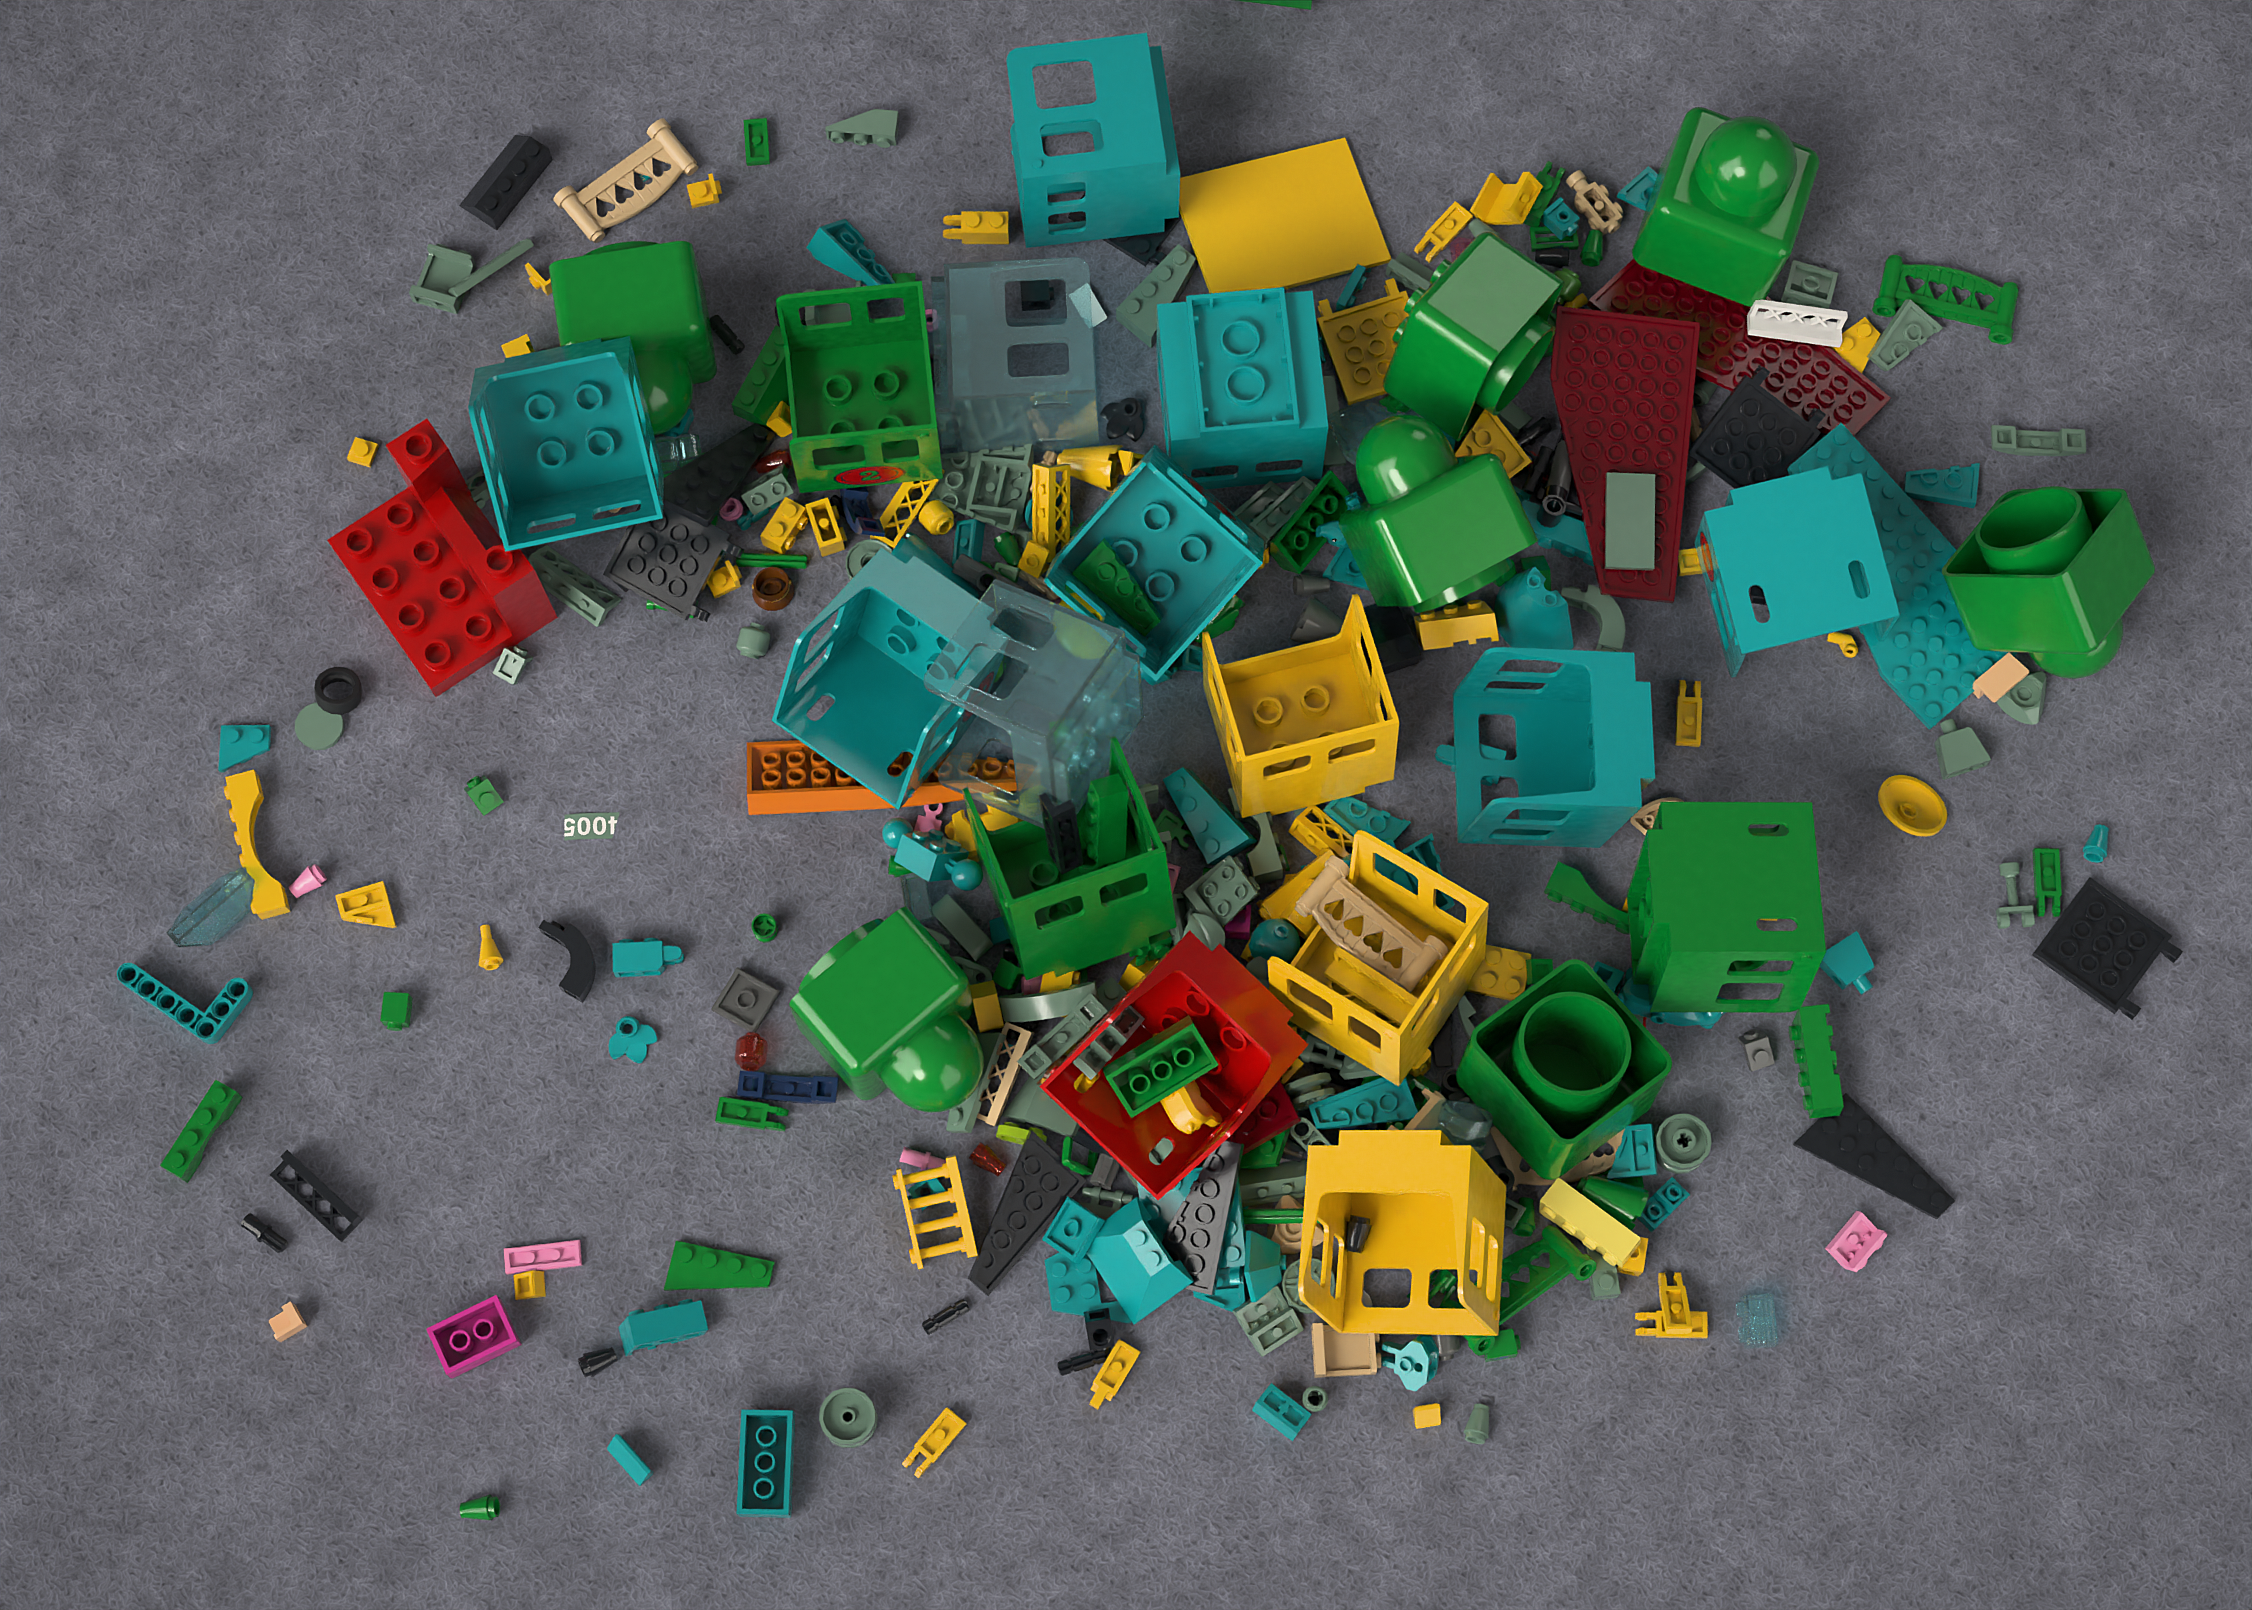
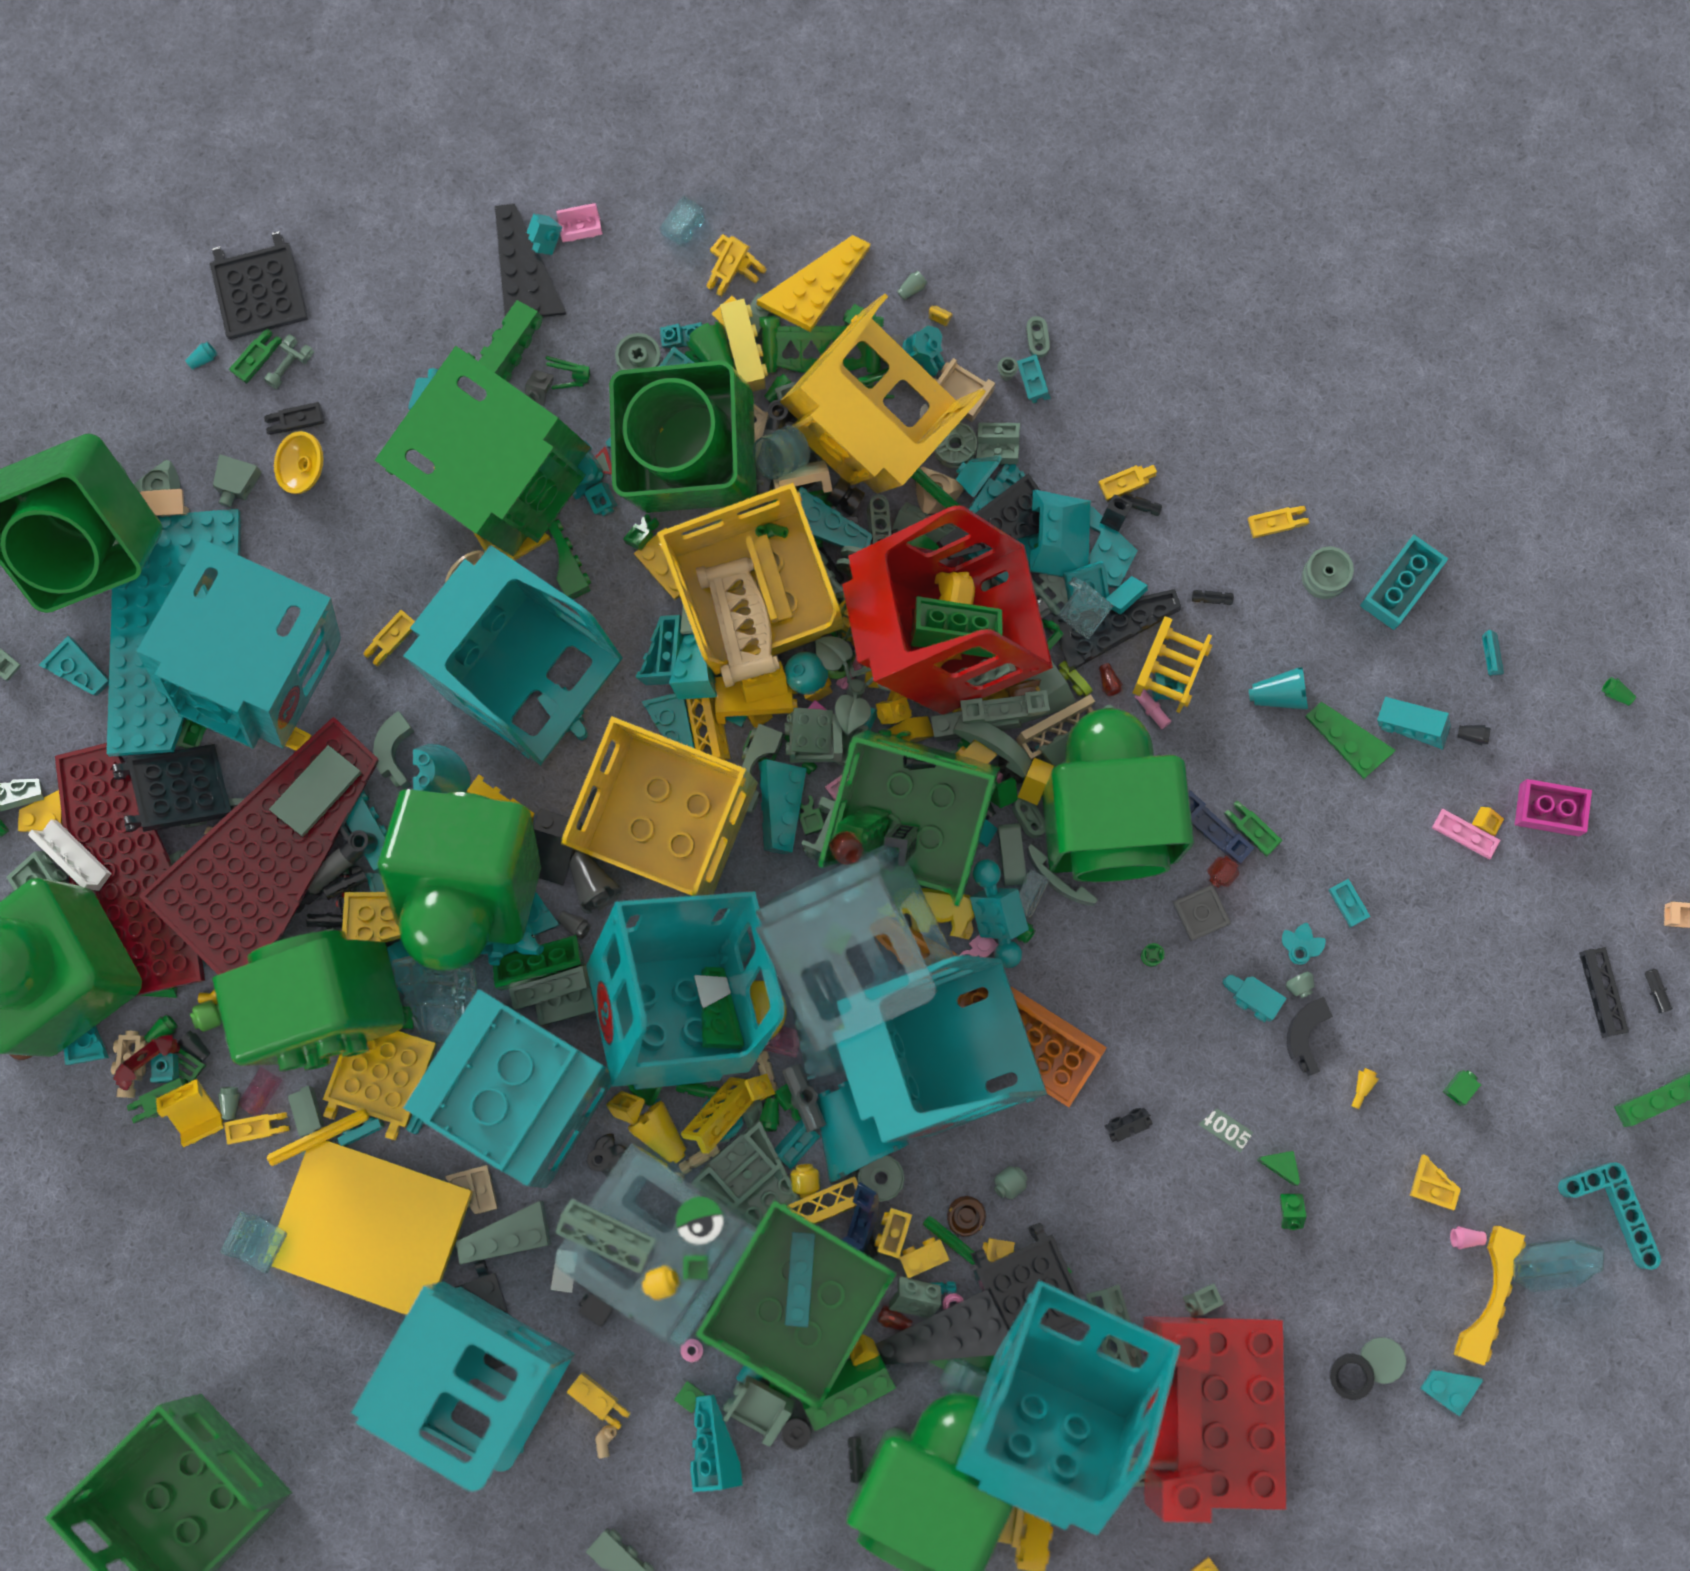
camera: 140 degrees left, 5 degrees up
(519, 825) = (1283, 1165): none -> green slope
(607, 998) = (1301, 984): none -> sand green cone
(612, 1108) = (1349, 903): none -> teal plate
(688, 757) = (1137, 1119): none -> black hinge
(812, 1265) = (1281, 691): none -> teal cone
(873, 417) = (800, 1279): none -> teal plate
(951, 203) = (603, 1438): none -> tan arm
(964, 333) = (695, 1267): none -> green panel
(981, 300) = (661, 1283): none -> yellow head
(988, 372) = (699, 1220): none -> tile
(1030, 1253) = (1127, 594): none -> teal tile
(1057, 305) = (607, 1232): none -> sand green fence
(1057, 1200) = (1085, 608): none -> clear light blue bracket
(1101, 768) = (846, 848): none -> clear red head
(1138, 602) = (711, 988): none -> white sticker
(1312, 1462) = (1037, 337): none -> sand green plate
(1366, 146) = (254, 1241): none -> clear light blue bracket
(1383, 258) = (317, 1137): none -> yellow axle
(1570, 1333) = (811, 290): none -> yellow wing
(1580, 229) = (125, 1072): none -> dark red piece
(1727, 1090) = (579, 372): none -> green plant
(1880, 1202) = (544, 233): none -> teal brick
(1955, 851) = (295, 418): none -> black hinge

